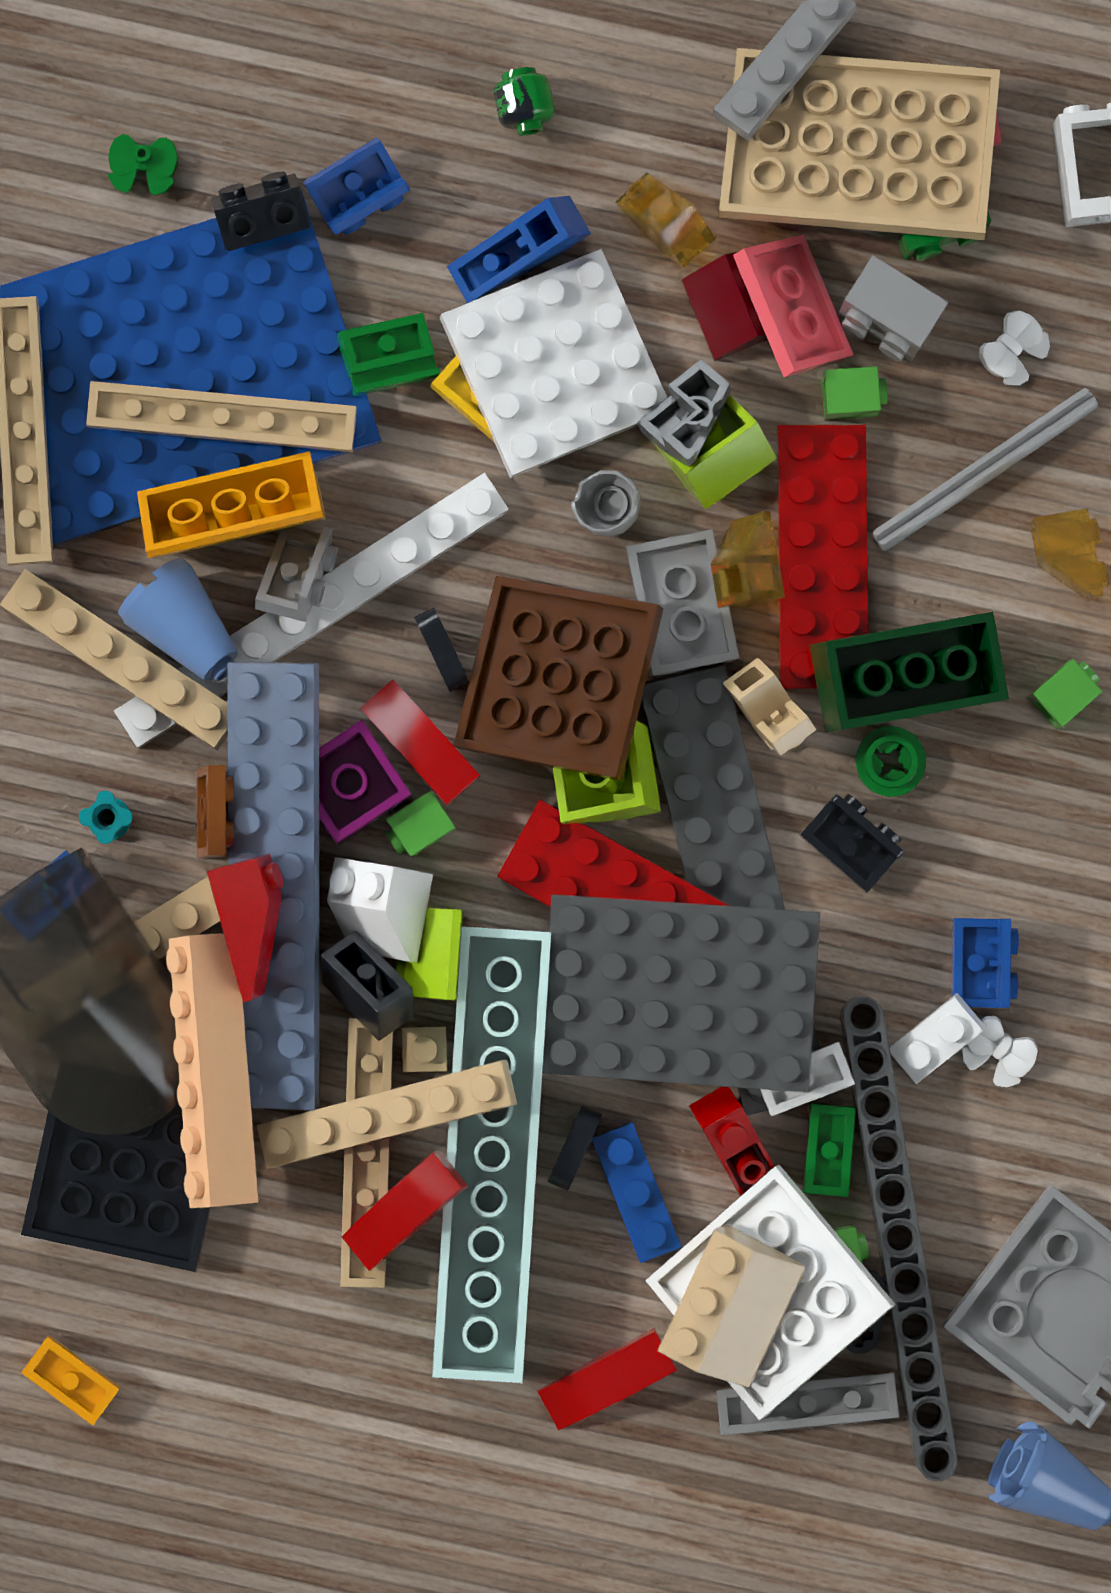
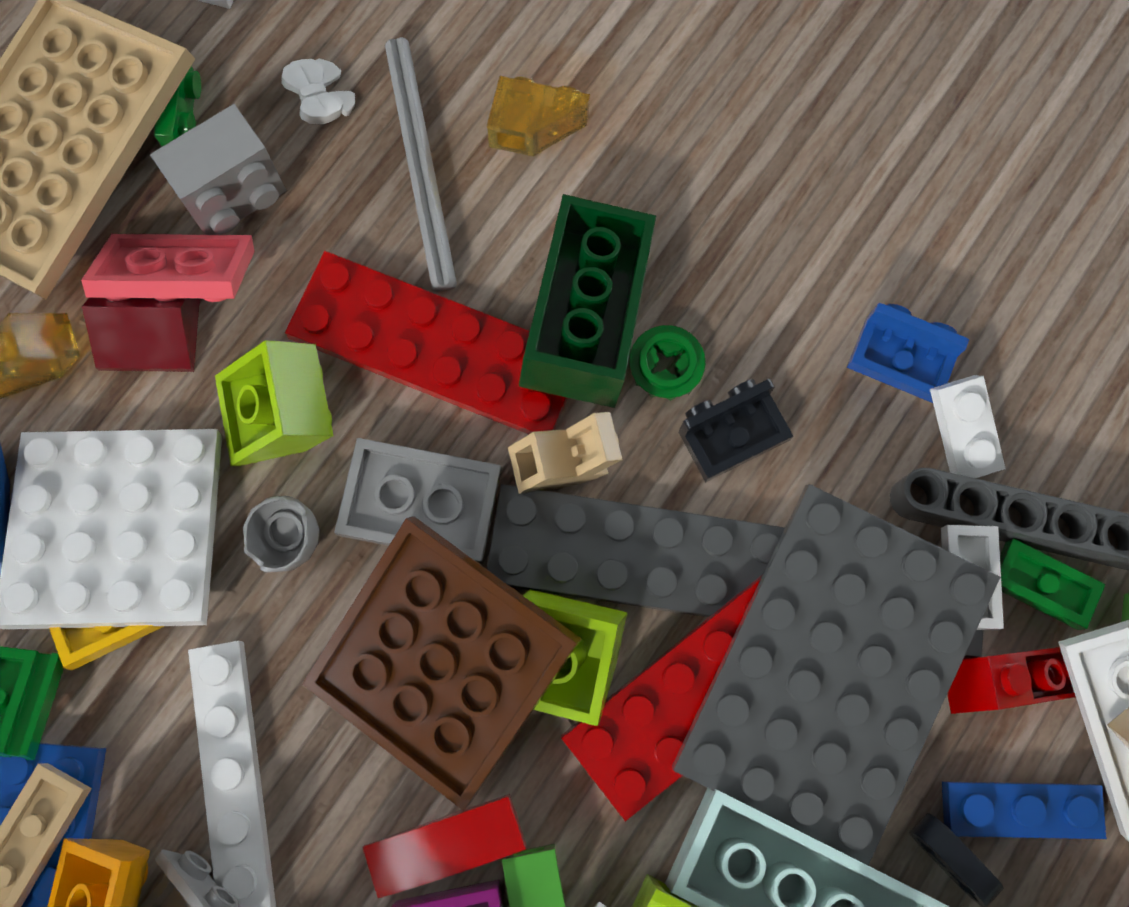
camera: 65 degrees left, 10 degrees down
(441, 649) = (353, 778): black beam -> none
(687, 416) = (229, 411): dark grey slope -> none
(747, 564) = (408, 416): clear yellow slope -> none
(853, 393) = (286, 249): bright green brick -> none
(1014, 1055) = (1007, 363): white piece -> none
(1066, 693) = (668, 172): bright green brick -> none

